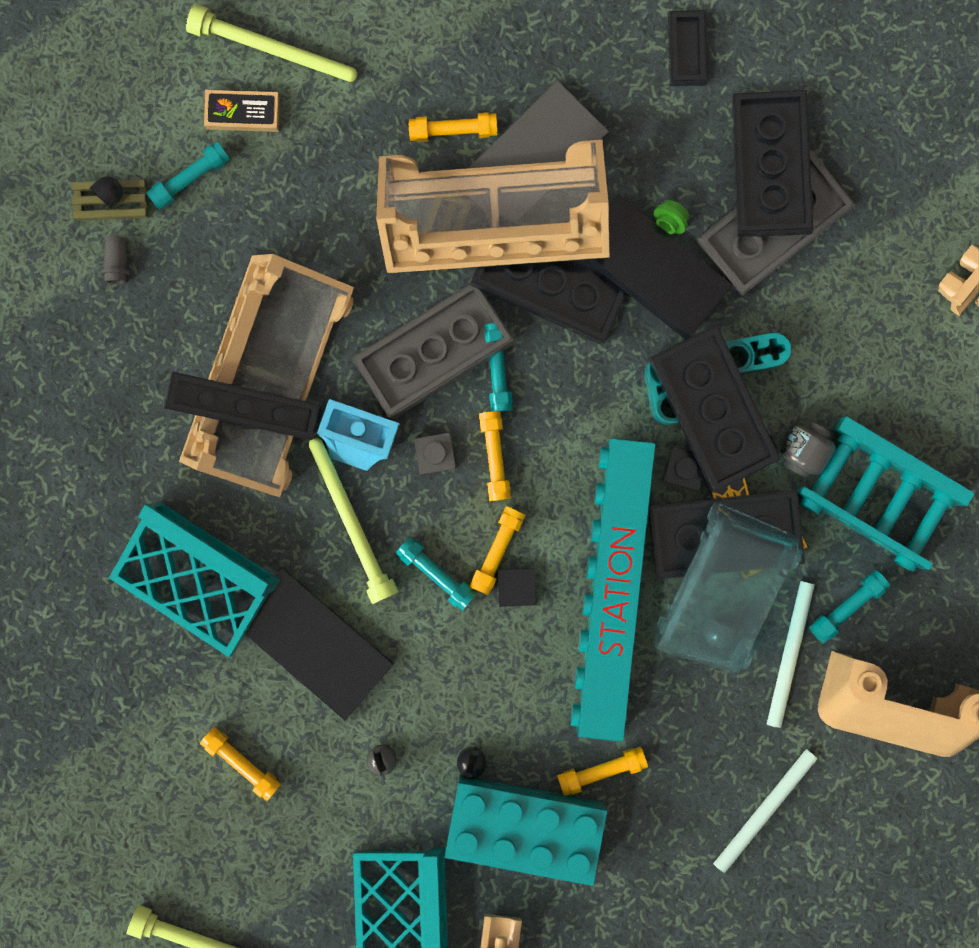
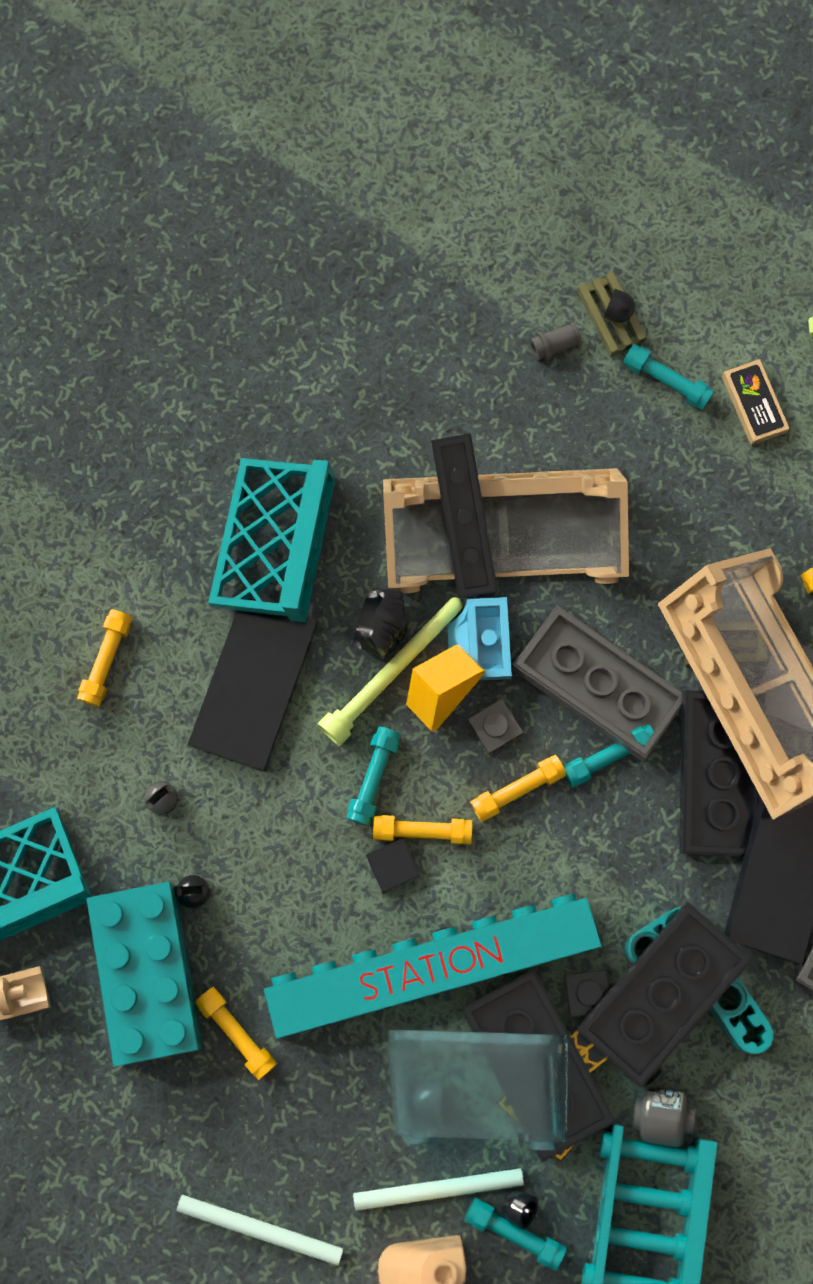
camera: 75 degrees right, 10 degrees down
(307, 515) = (381, 622): none -> black hair
(382, 484) = (441, 685): none -> yellow slope
(832, 595) = (521, 1208): none -> black hinge

